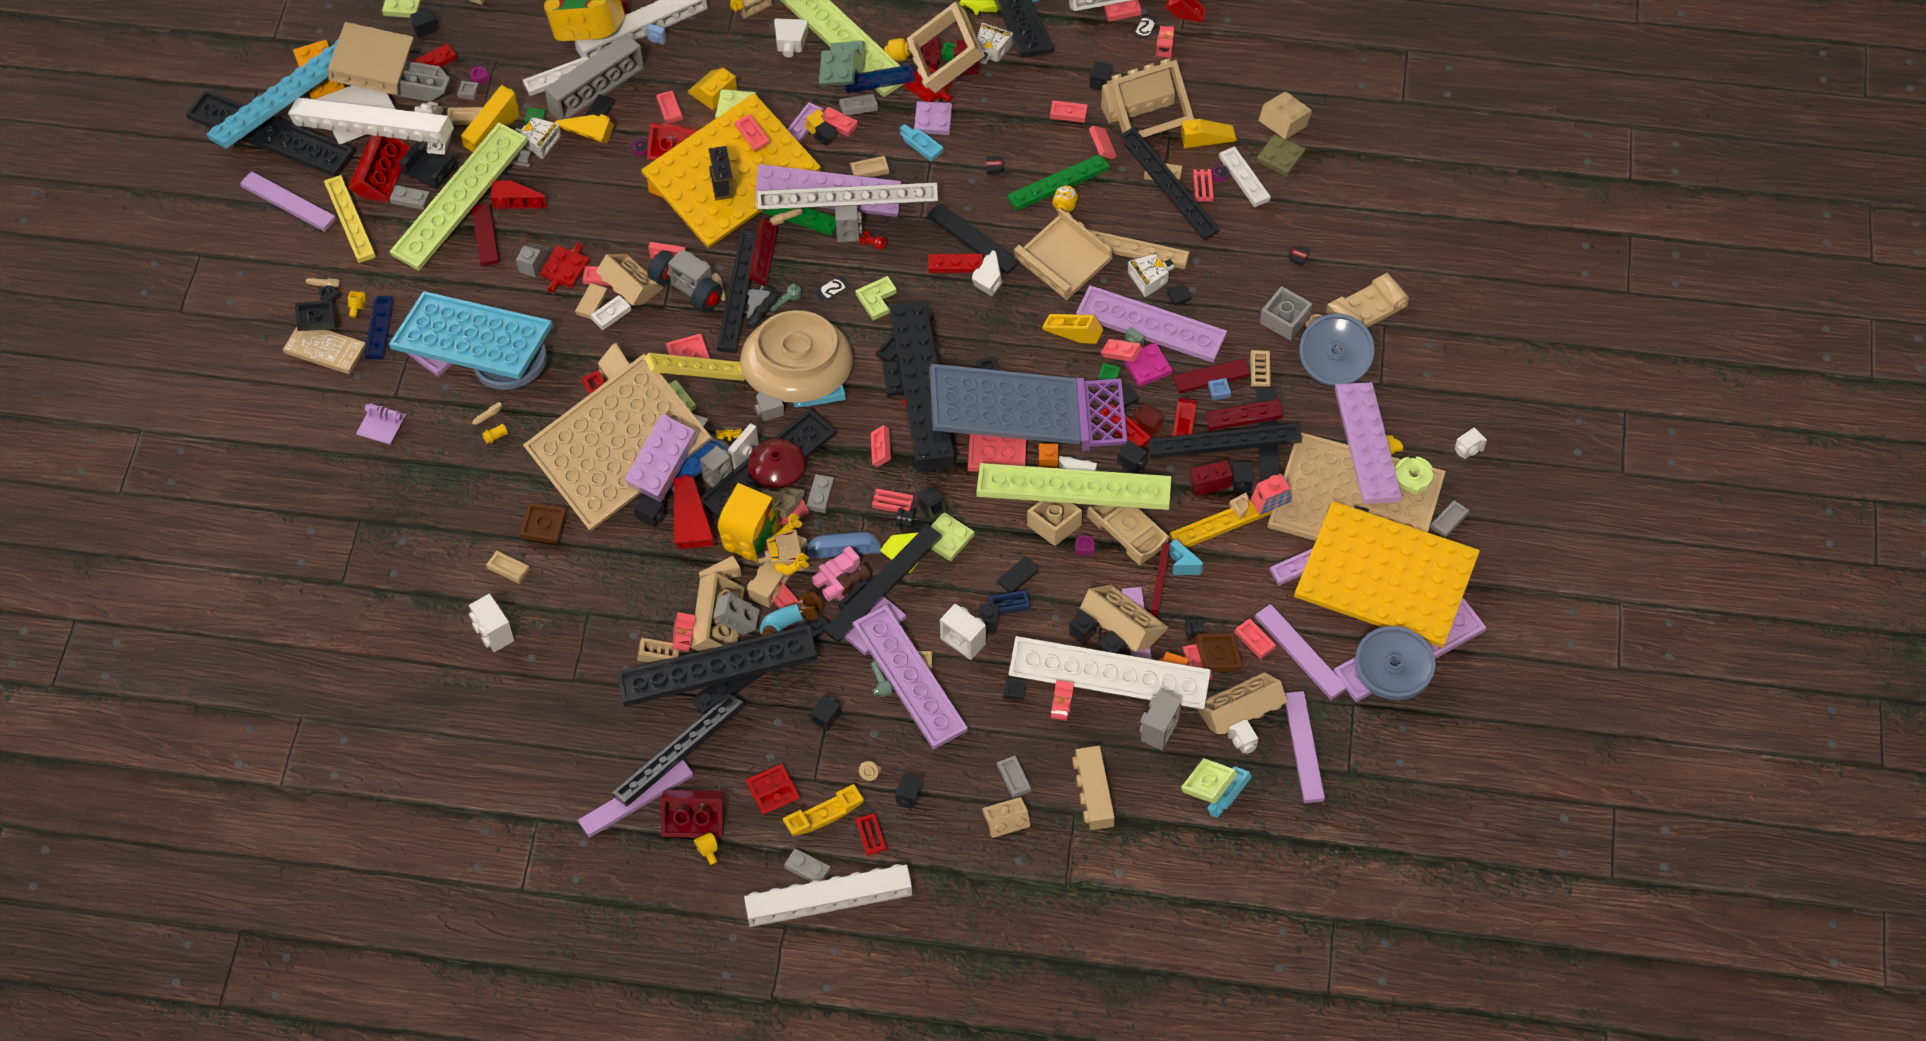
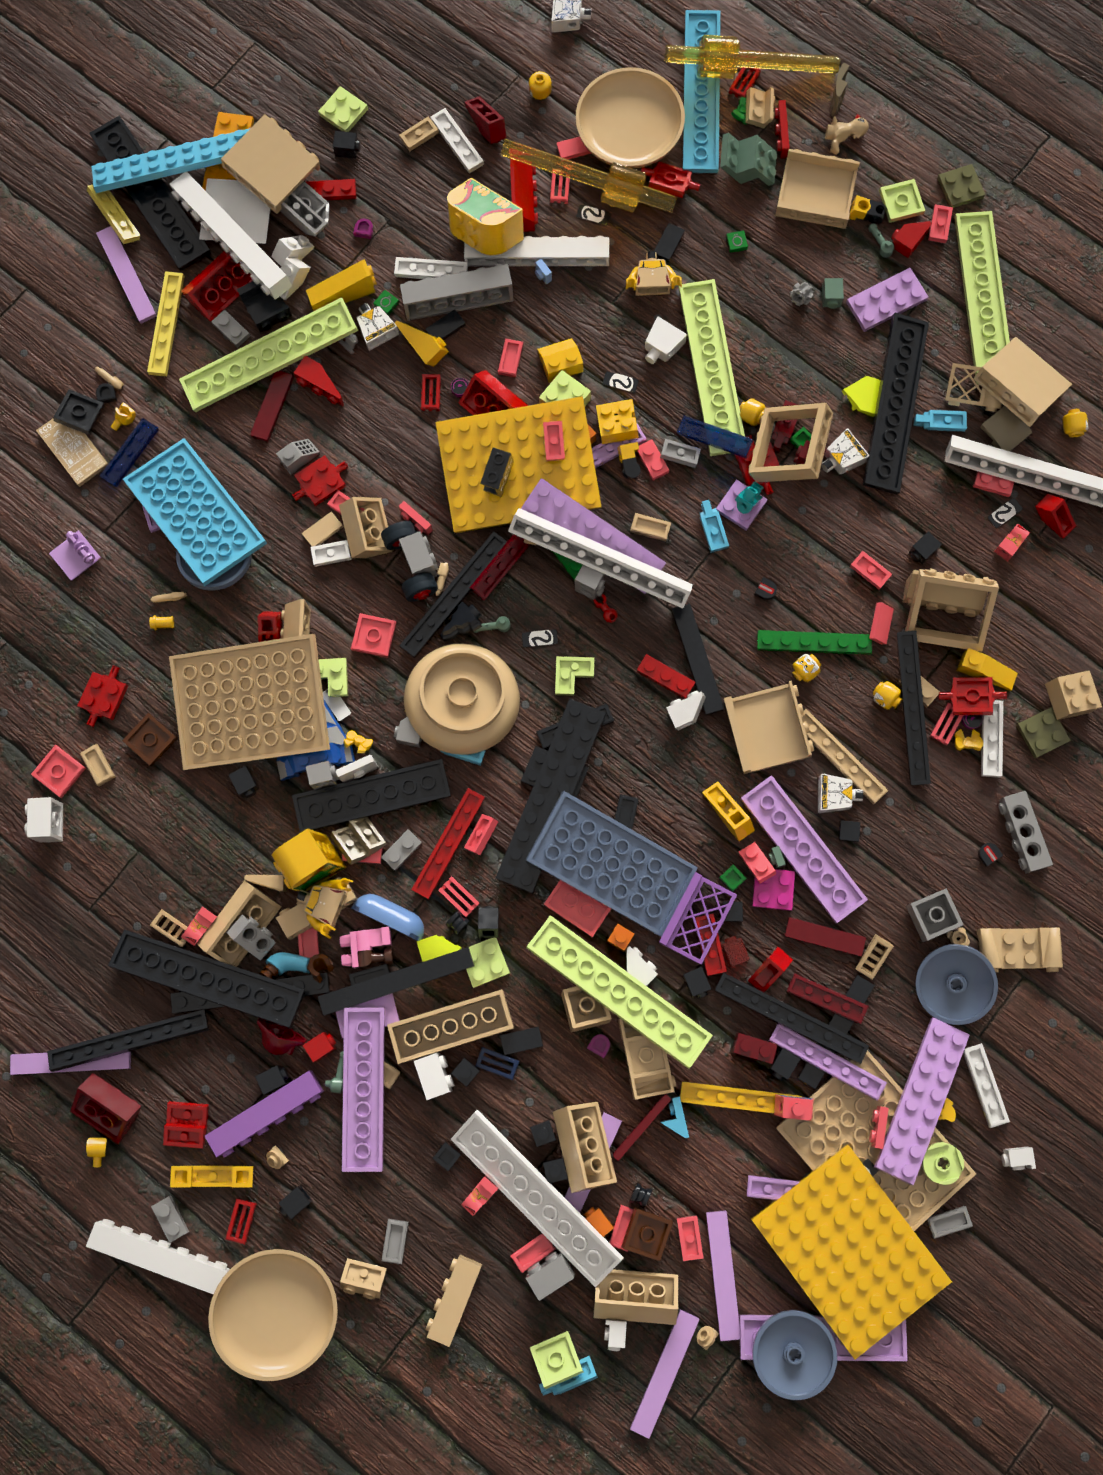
camera: 35 degrees right, 20 degrees up
(247, 161) = (115, 215): none -> light yellow plate
(463, 116) = (324, 265): tan tile -> none
(468, 90) = (345, 240): light grey tile -> none
(473, 586) = (58, 771): none -> coral tile
(478, 513) = (102, 696): none -> red plate
(622, 171) = (430, 407): none -> red tile
(661, 458) = (271, 746): lavender brick -> none
(690, 518) = (272, 812): red slope -> none
(694, 366) = (356, 665): light yellow plate -> none
(773, 81) = (620, 381): none -> sticker
(776, 471) = (385, 811): dark red dish -> none
(791, 106) = (617, 421): none -> yellow piece
(810, 681) = (279, 1039): none -> dark red hat
(836, 741) = (264, 1113): none -> medium lavender brick
(842, 63) = (689, 402): sand green bracket -> none
(850, 667) = (320, 1046): none -> red brick
(857, 467) = (448, 843): none -> red plate
(937, 104) = (749, 498): none -> teal hips
(949, 865) = (272, 1315): none -> tan dish
(957, 584) = (450, 1026): none -> tan brick
(1131, 724) = (532, 1252): none -> coral tile
(1142, 186) = (887, 695): none -> yellow head
(1209, 153) = (972, 696): none -> red plate
(1219, 389) = (822, 957): medium blue plate -> none
(1231, 186) = (974, 741): none -> yellow piece
(1240, 505) = (762, 1094): tan tile -> none
(1280, 454) = (828, 1062): none -> lavender tile
(1315, 225) = (1029, 822): none -> light grey brick
(1318, 701) = (706, 1336): none -> tan plate
(1348, 475) = (878, 1134): none -> coral plate
(1409, 411) = (985, 1085): none -> white tile

